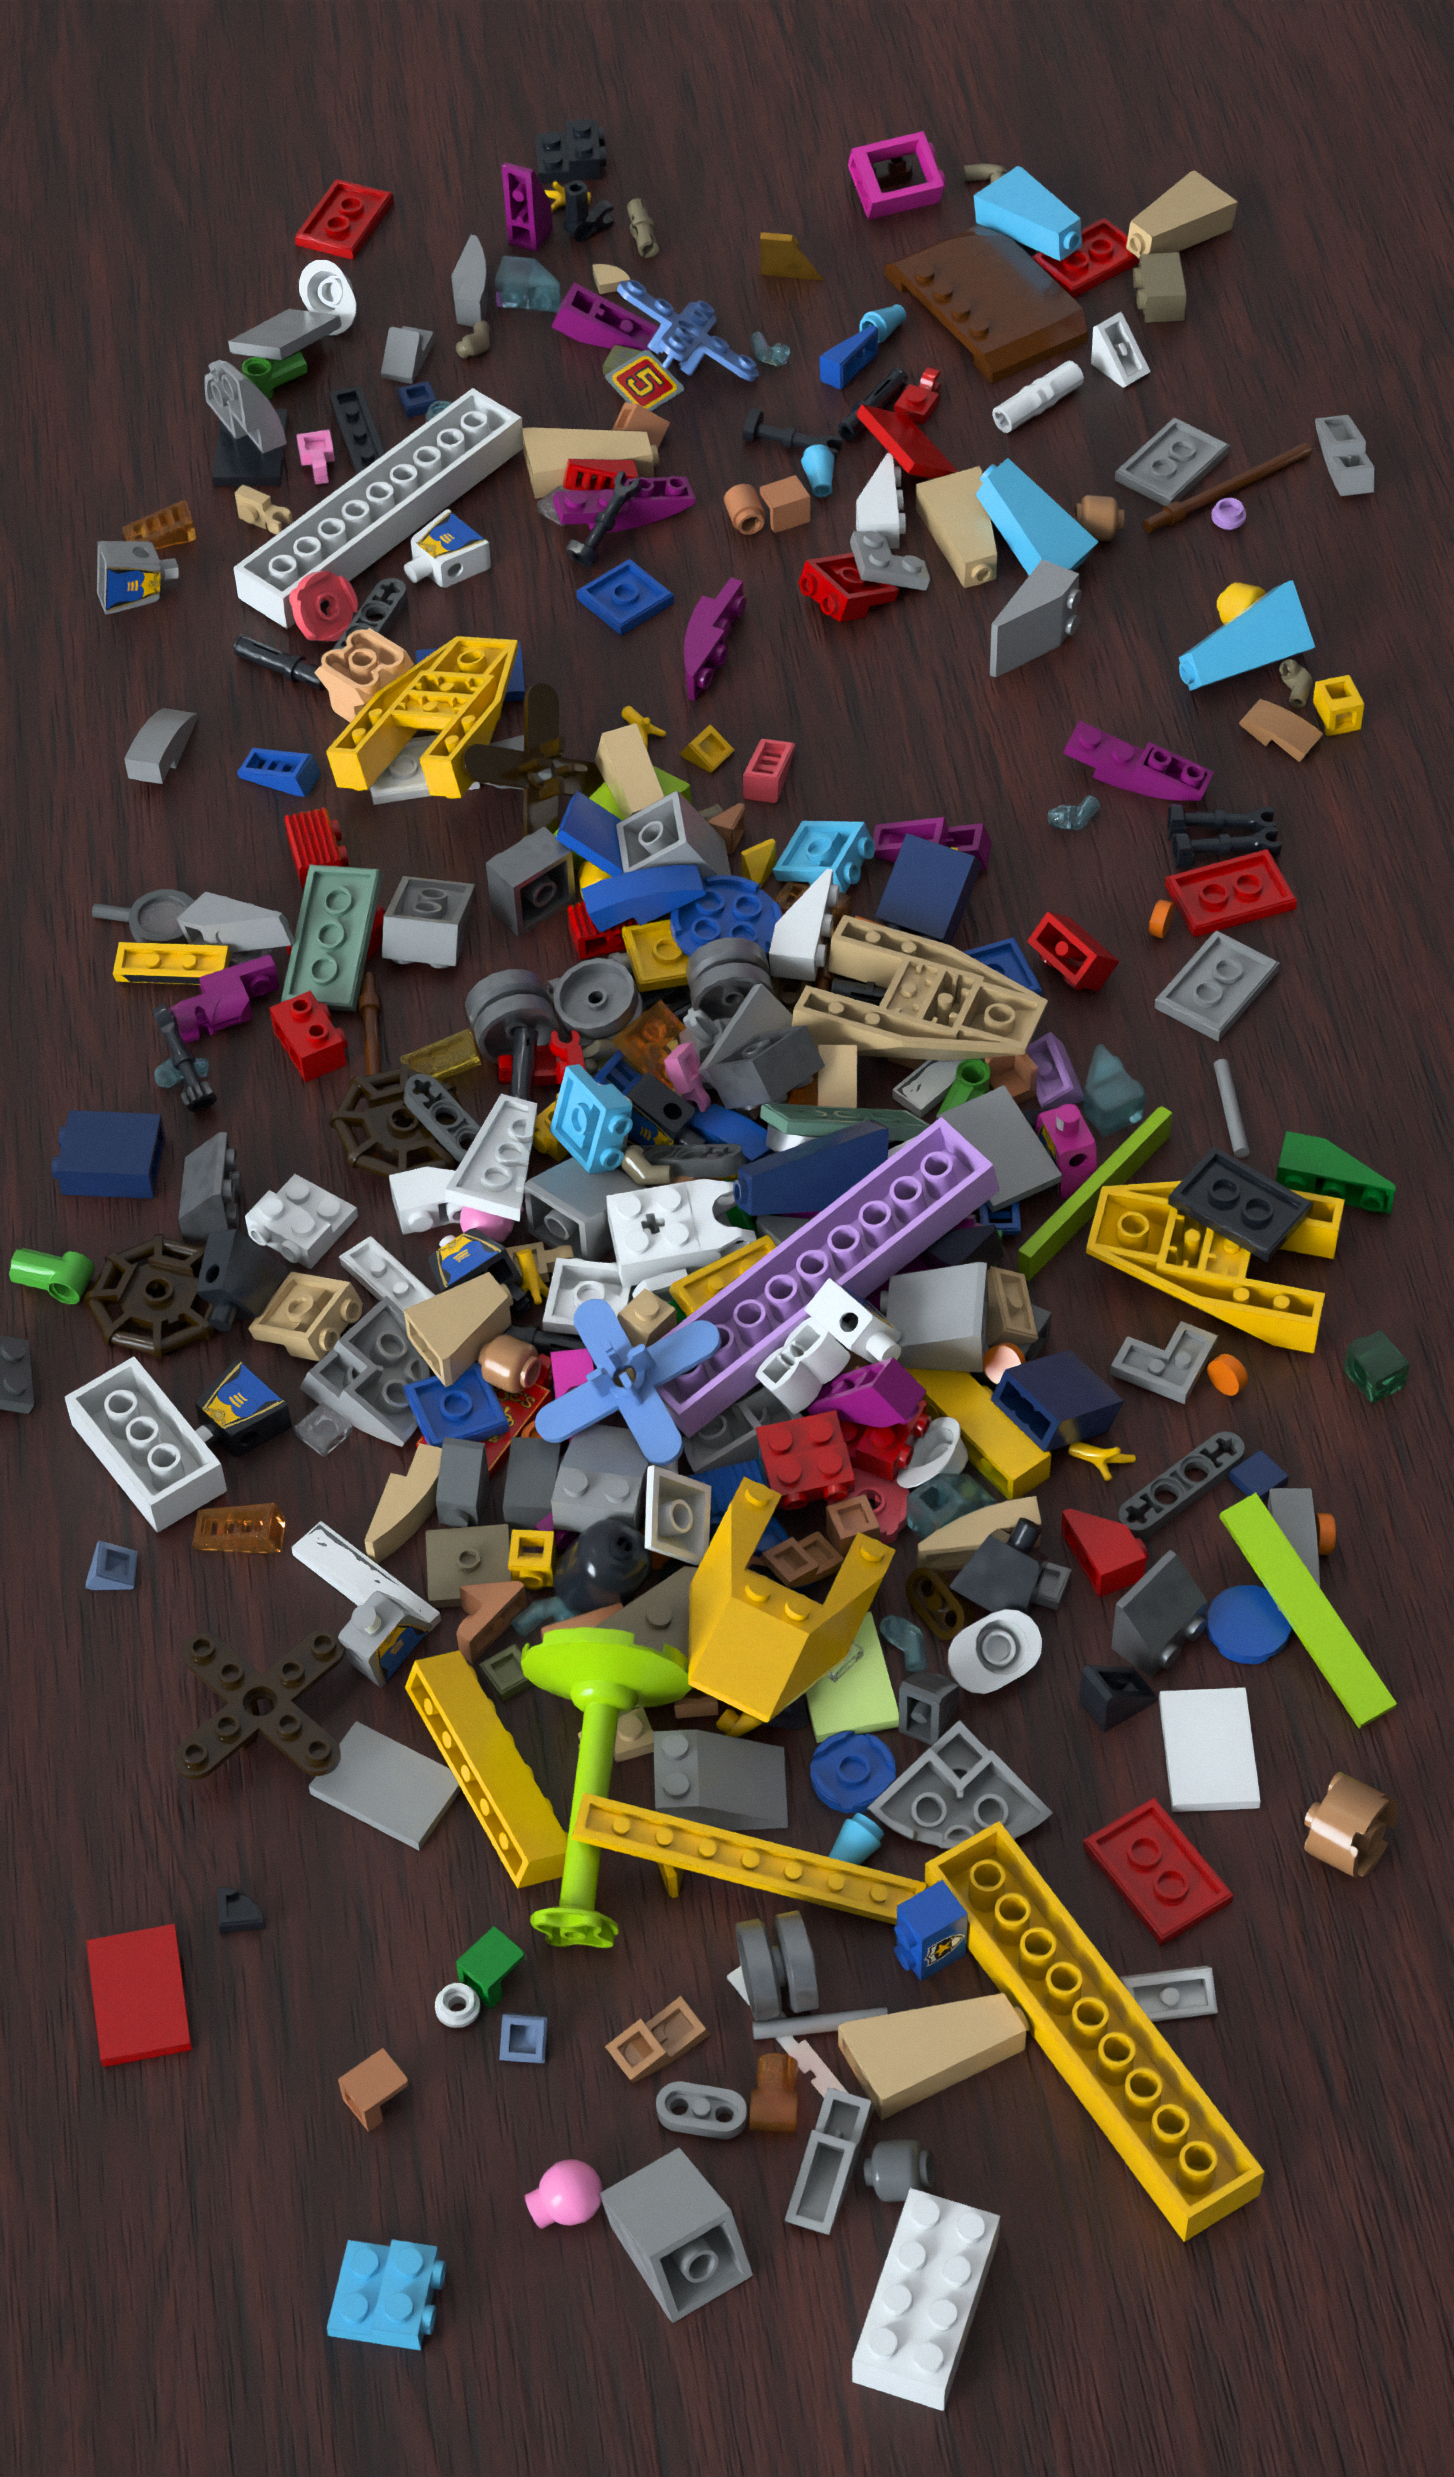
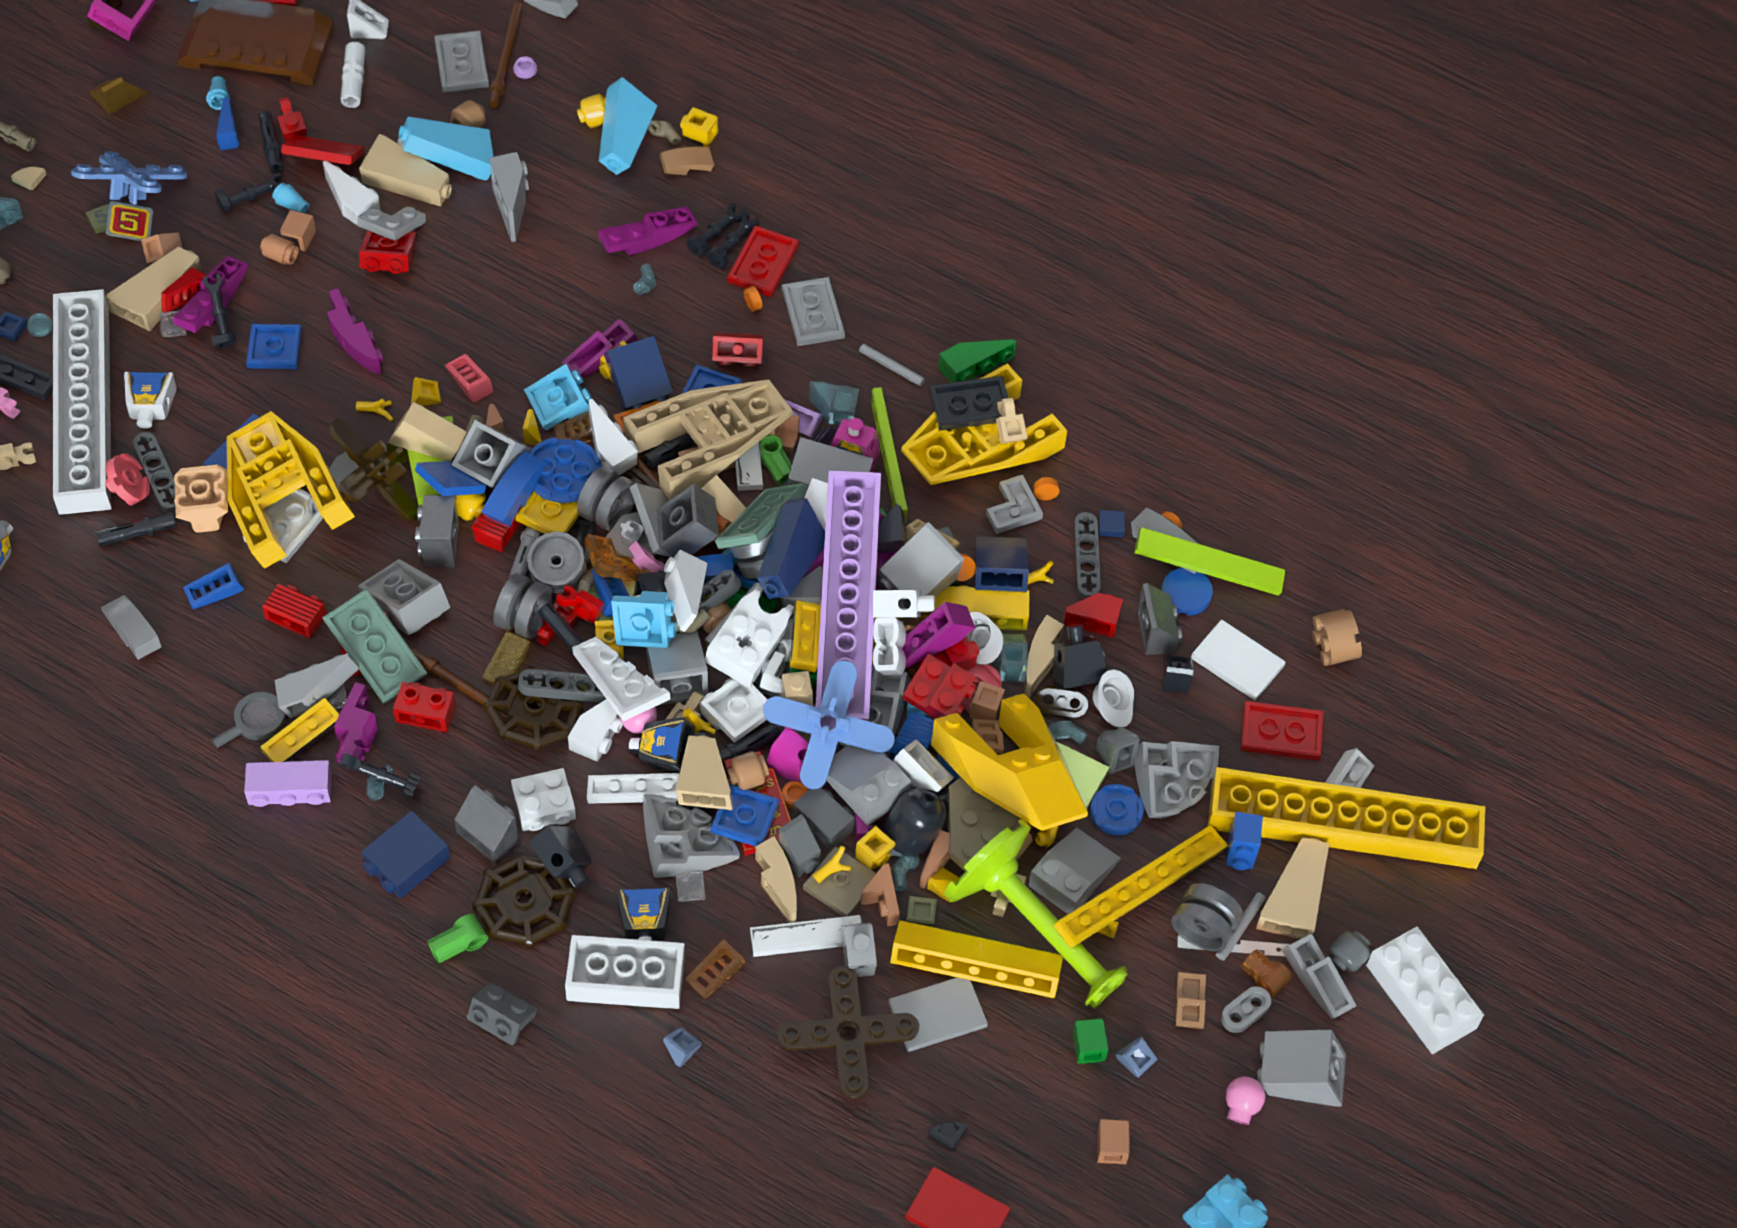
camera: 55 degrees left, 5 degrees up
(101, 997) = (288, 783): none -> lavender brick
(308, 1315) = (614, 839): tan plate -> none
(455, 1994) = (1094, 1065): white plate -> none
(468, 1535) = (831, 867): none -> yellow bar
(601, 322) = (62, 205): magenta slope -> none
(683, 1119) = (684, 585): none -> white slope
(775, 356) = (183, 153): clear light blue arm -> none
(857, 1840) = (1160, 836): medium azure cone -> none
(1248, 1260) = (1010, 426): none -> tan plate
(1376, 1366) = (1099, 430): clear green brick -> none

